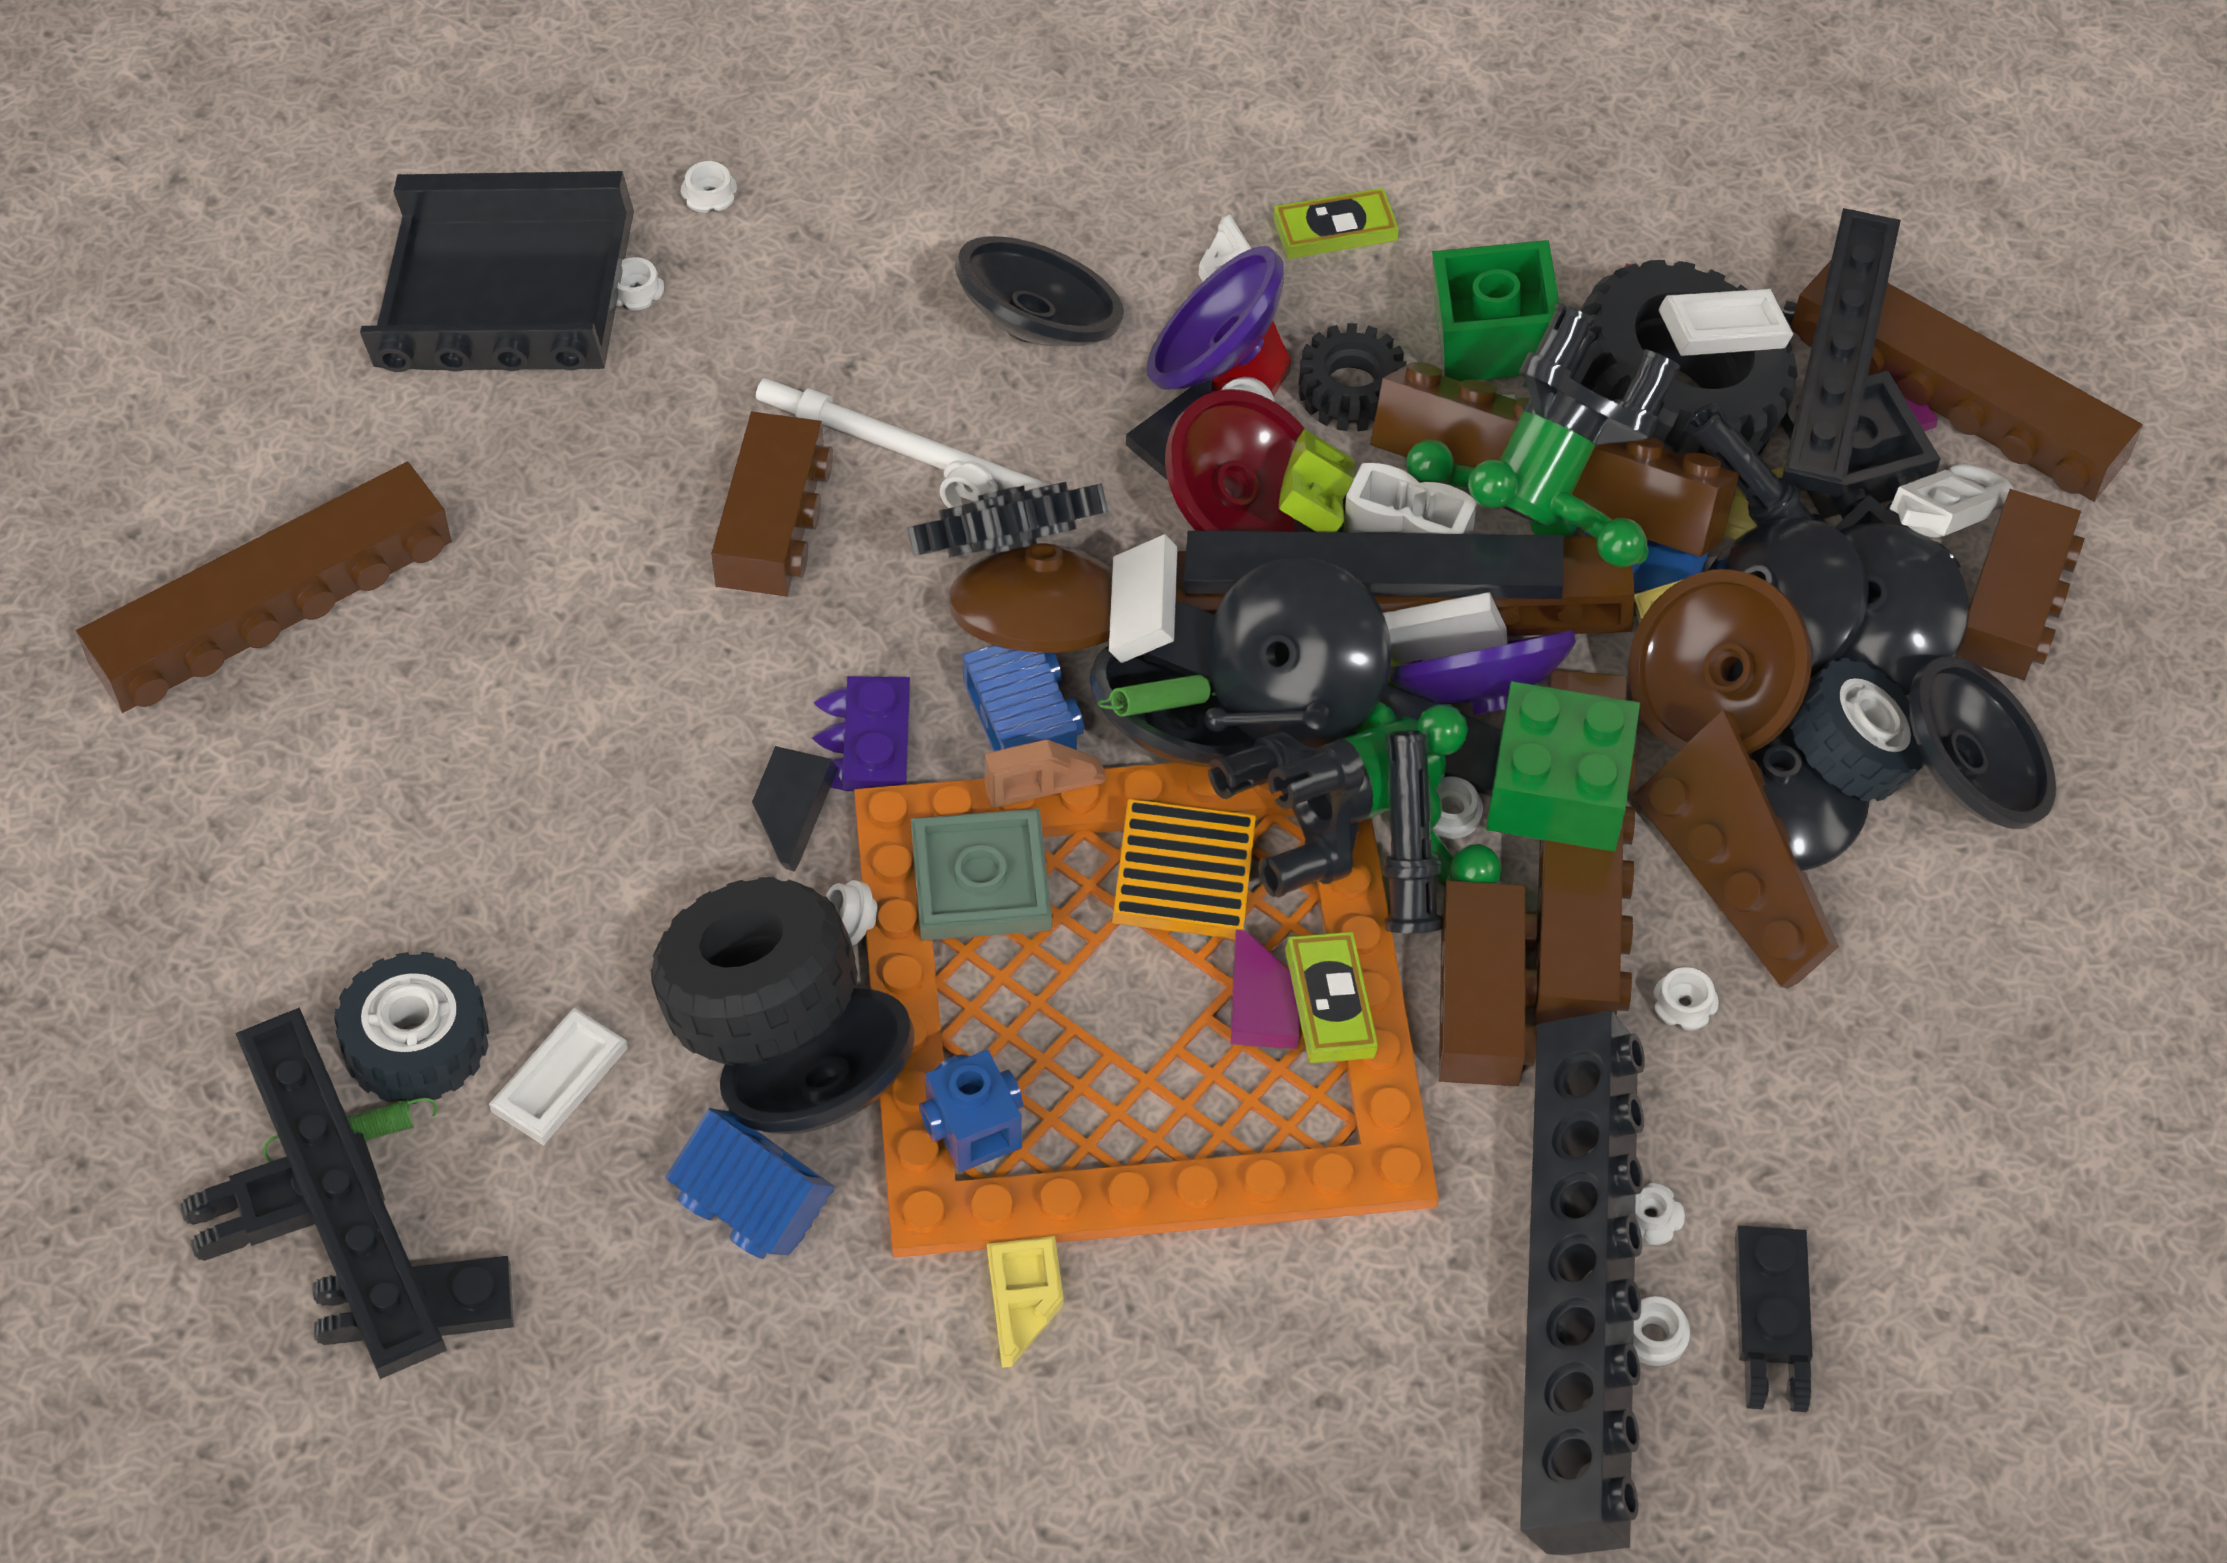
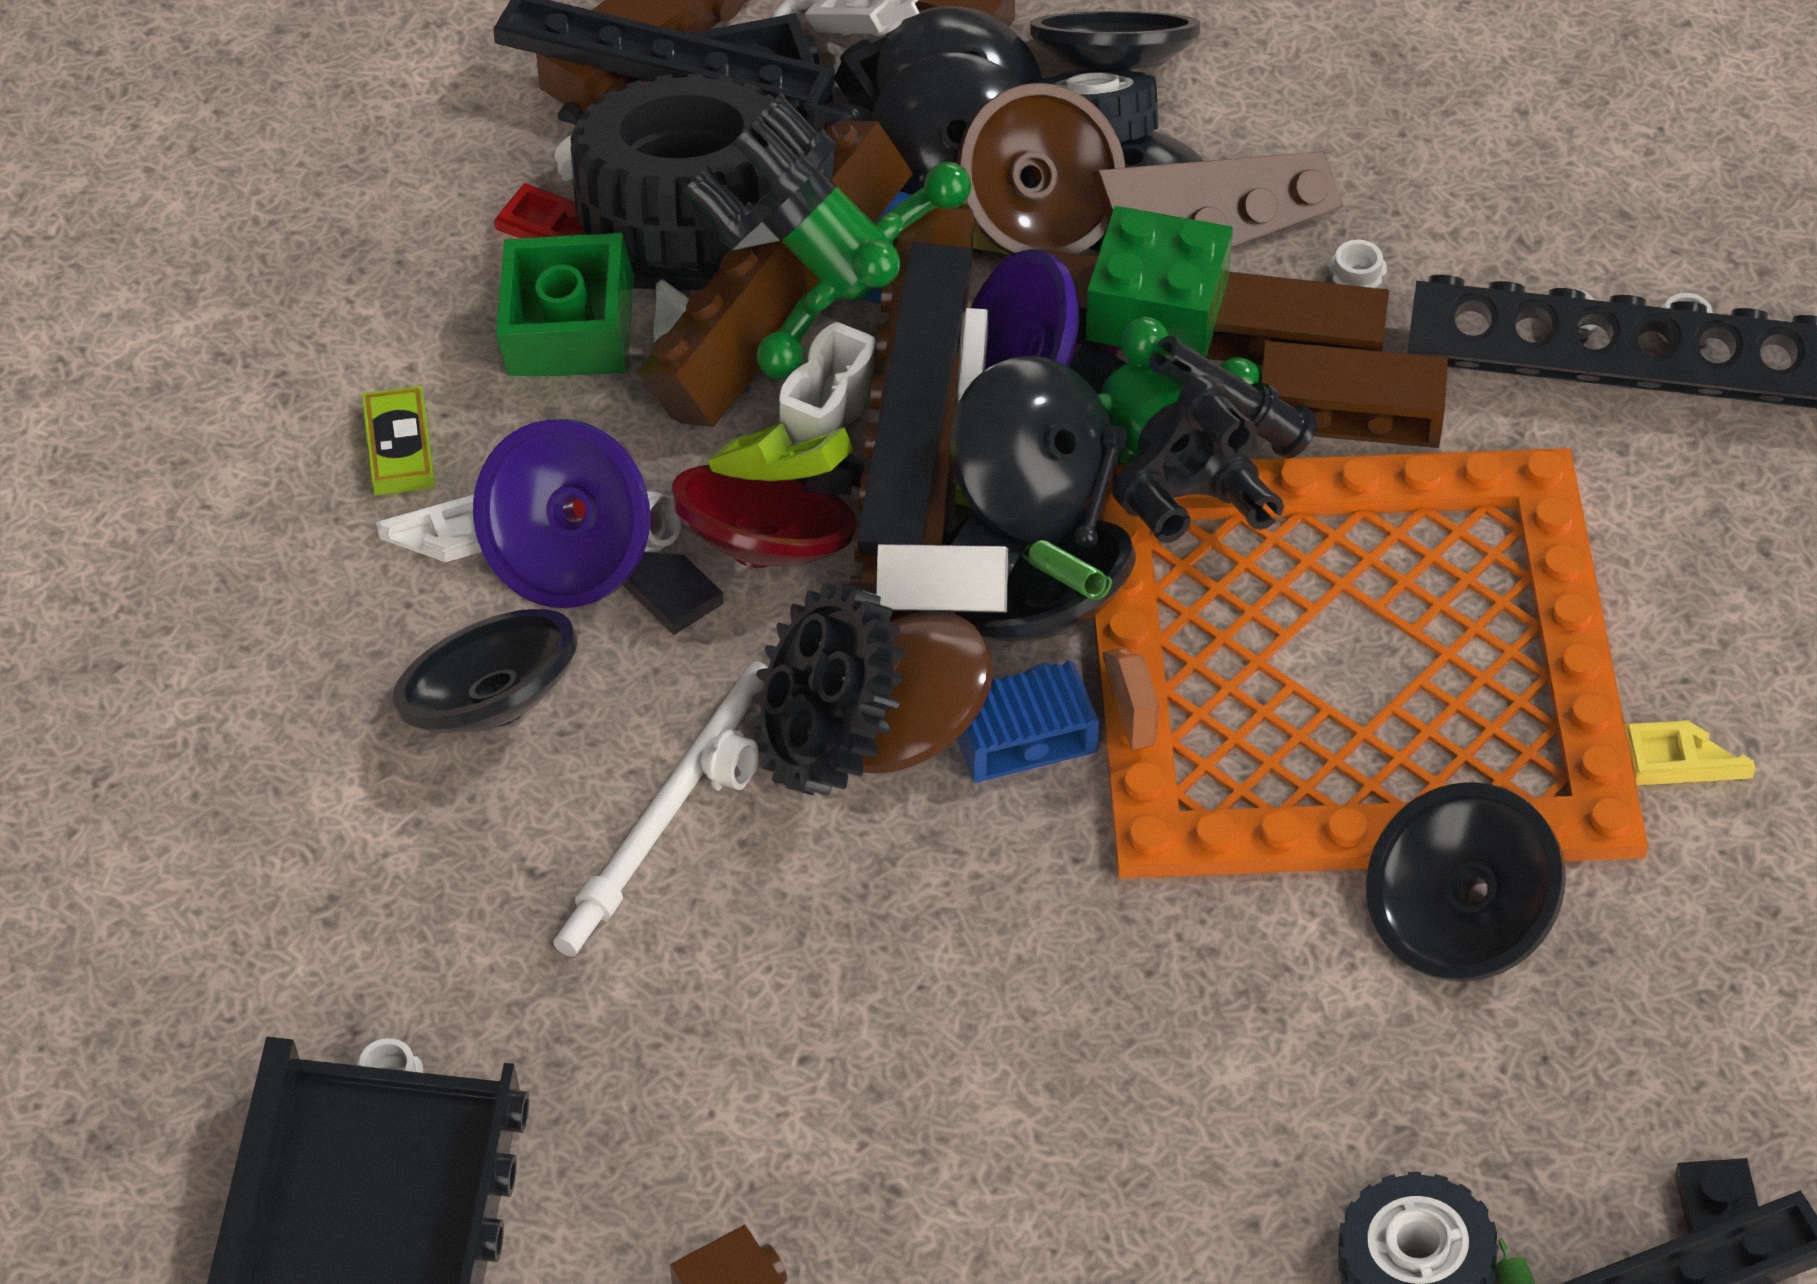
camera: 85 degrees left, 5 degrees down
(558, 1076) = (1461, 1130): white tile -> none
(707, 176) = (244, 982): white plate -> none
(748, 1185) = (1596, 950): blue brick -> none
(754, 971) = (1395, 978): black tyre -> none
(771, 504) = (742, 930): reddish brown brick -> none
(792, 799) = (1130, 921): black tile -> none
(854, 907) = (1277, 886): white plate -> none
(873, 732) = (1042, 859): dark purple plate -> none
(973, 1109) = (1526, 749): blue brick -> none
(981, 874) = (1233, 756): sand green tile -> none
(1184, 869) = (1228, 599): tile -> none
(1262, 998) = (1365, 552): magenta tile -> none
(1331, 997) = (1382, 490): tile -> none
(1341, 352) = (633, 410): black tyre -> none
(1725, 322) = (663, 101): white tile -> none
(1774, 1311) = (1666, 248): black hinge -> none

